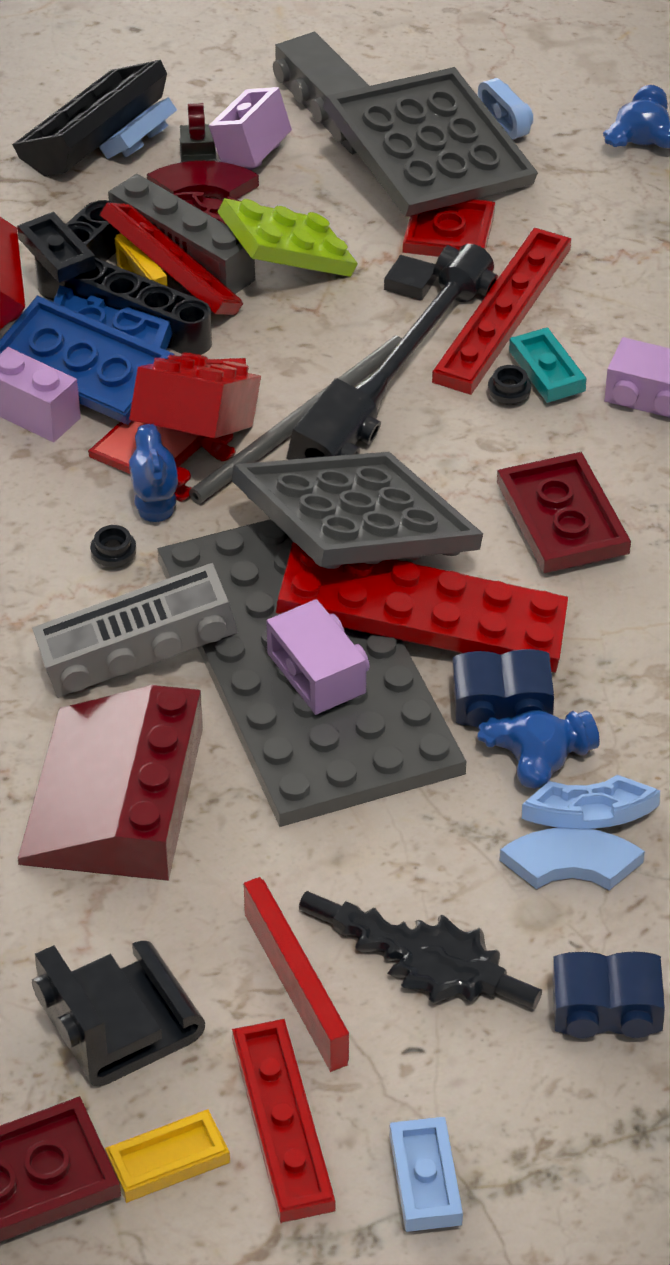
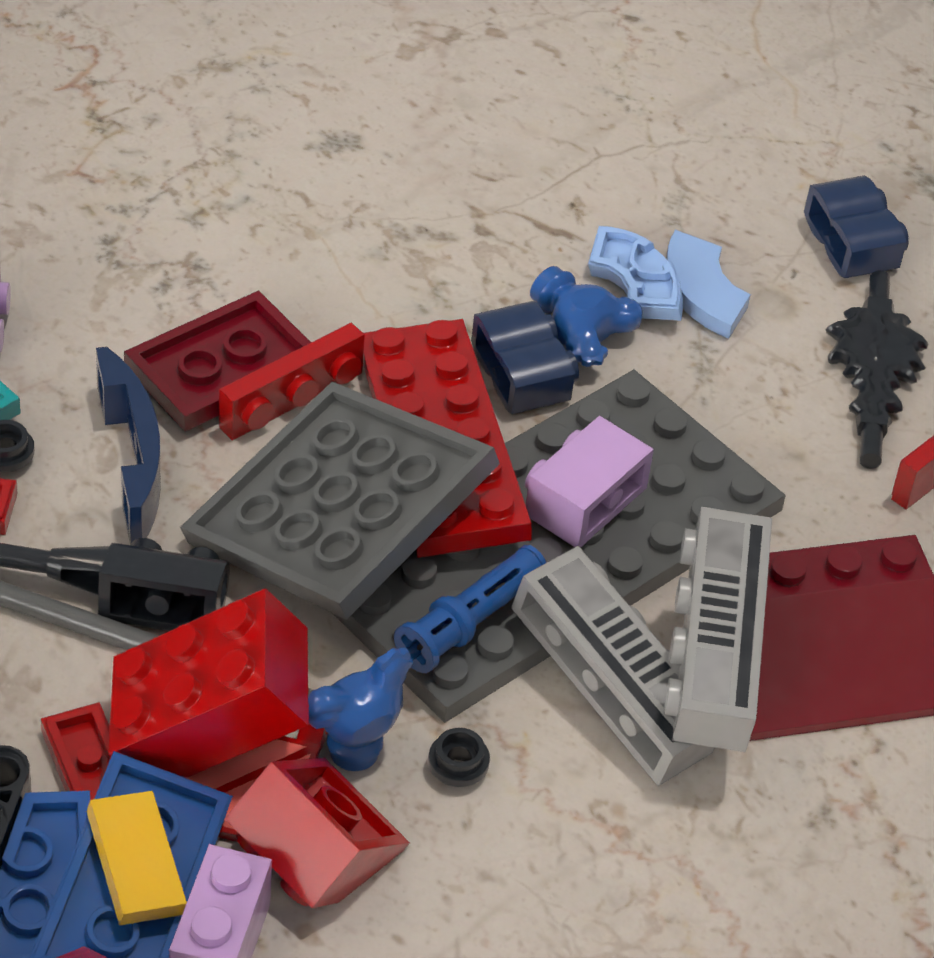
camera: 115 degrees left, 0 degrees up
(79, 451) = (314, 830): none -> slope
(85, 346) = (136, 857): none -> yellow tile
(107, 655) = (722, 629): none -> light grey brick
(246, 594) = (462, 613): none -> blue pin
(479, 447) = (127, 401): none -> dark blue slope
(518, 538) = (290, 381): none -> red plate

